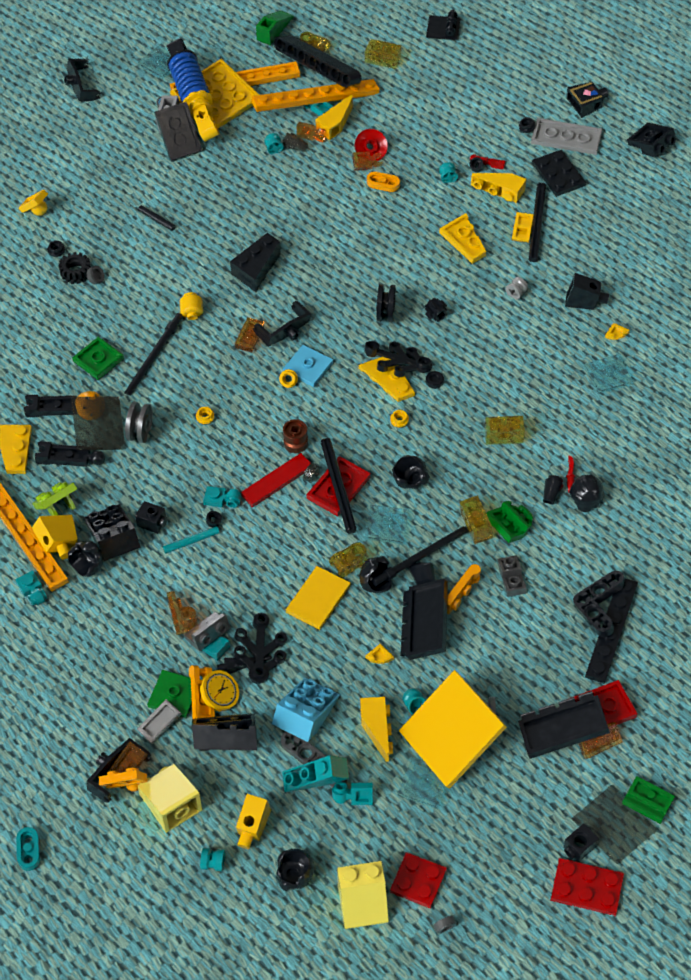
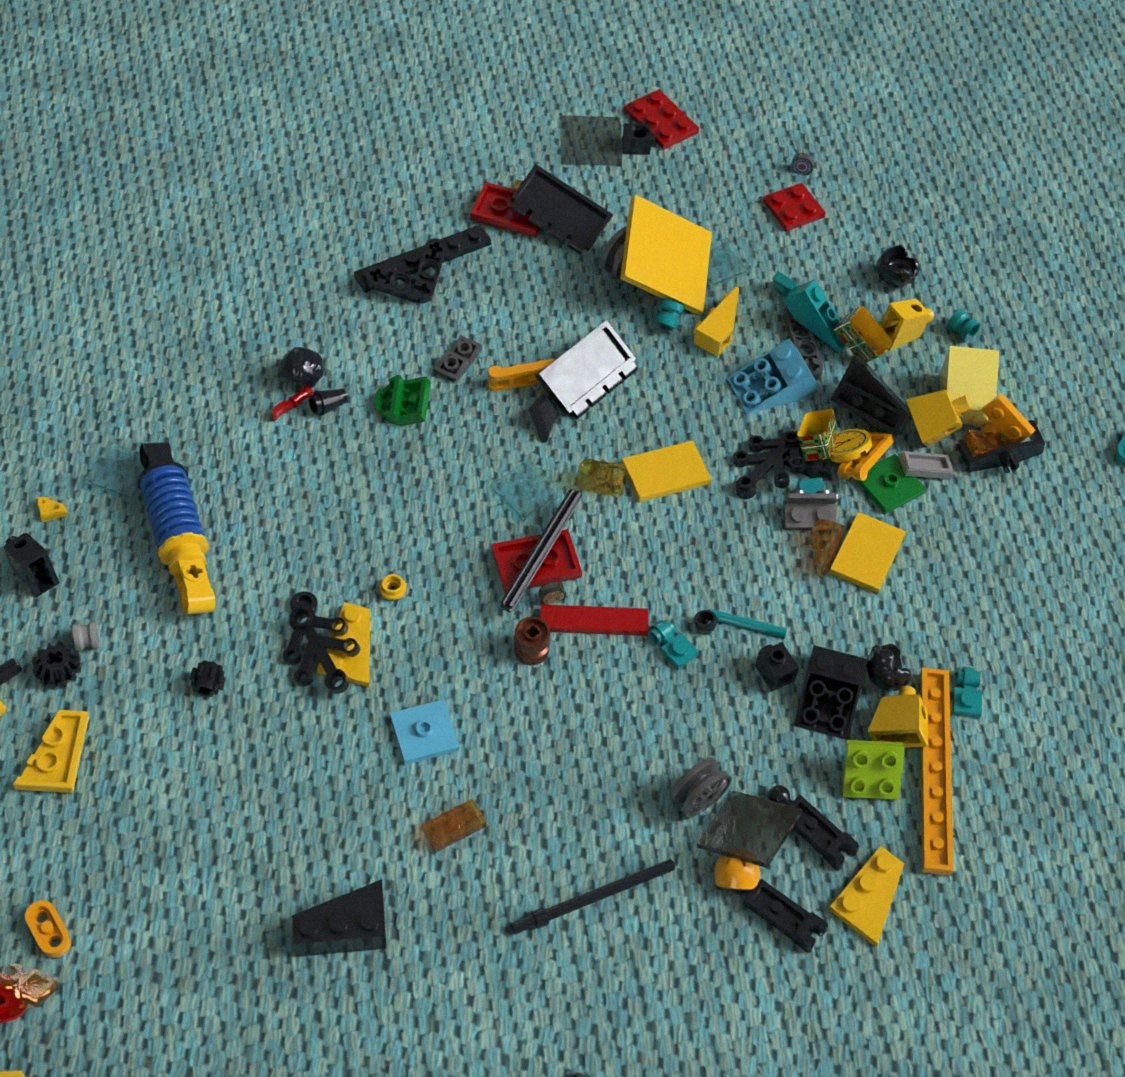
camera: 145 degrees left, 0 degrees up
(98, 358) = (671, 943): green plate -> none
(153, 635) = (867, 552): none -> yellow tile
(176, 749) = (937, 415): none -> yellow torso
(191, 306) = (489, 924): yellow head -> none
(204, 411) = (605, 750): yellow plate -> none
(245, 670) = (817, 434): none -> piece
(271, 772) = (862, 321): none -> piece
(282, 378) = (466, 727): yellow plate -> none
(289, 329) = (402, 788): black piece -> none
(362, 894) = (856, 212): light yellow slope -> none
(370, 570) = (594, 439): black hair -> none
(379, 654) = (657, 382): yellow tile -> none
(385, 302) = (259, 720): black wheel -> none
(390, 572) = (580, 428): black bar -> none
(410, 472) = (452, 511): black hair -> none
(476, 519) = (439, 416): clear yellow brick -> none
(504, 430) = (304, 484): clear yellow brick -> none
(513, 267) = (56, 664): none -> black gear
(541, 359) = (176, 525): none -> piece
(648, 799) = (548, 131): green plate -> none

